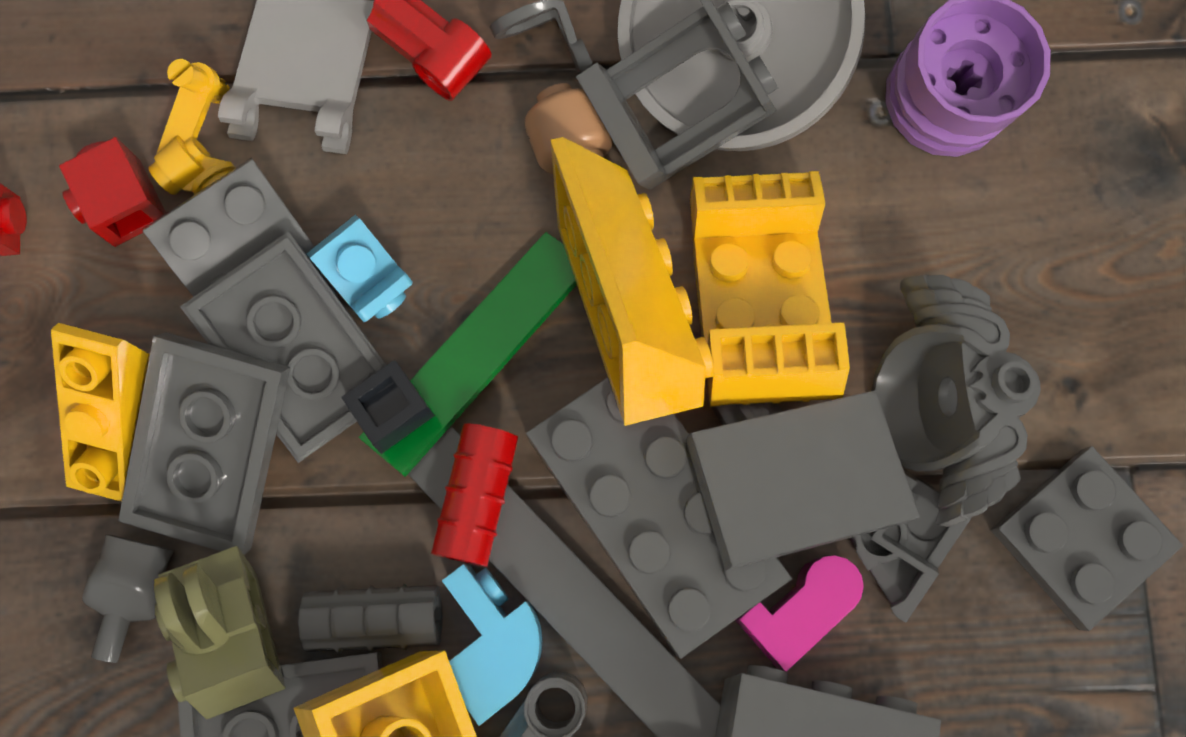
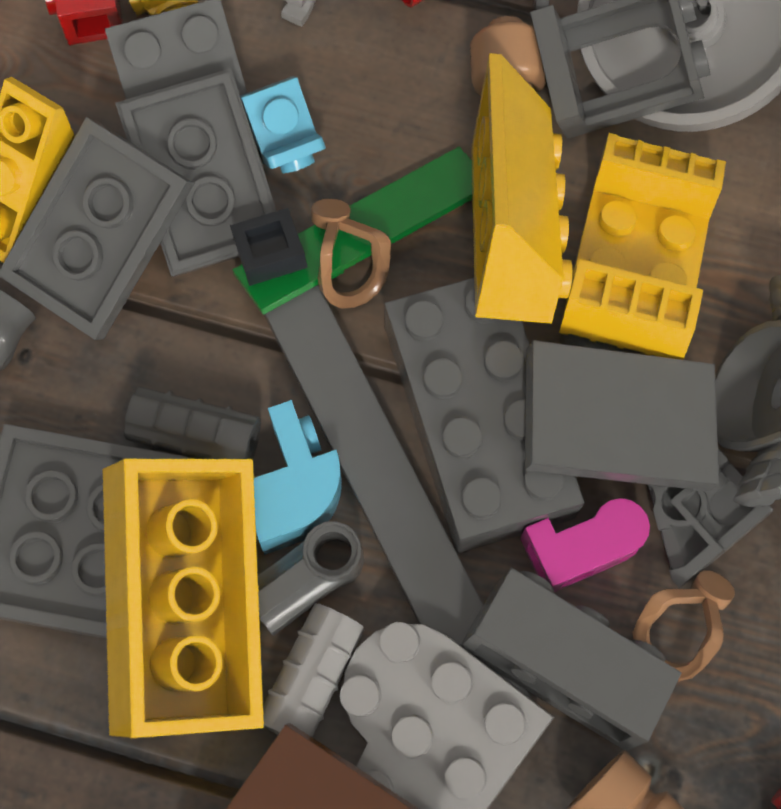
camera: 15 degrees right, 5 degrees down
(217, 633) = (55, 390): olive brick -> none
(443, 349) = (335, 216): none -> medium nougat piece
(475, 494) = (321, 345): red axle -> none
(939, 616) = (707, 589): none -> medium nougat piece

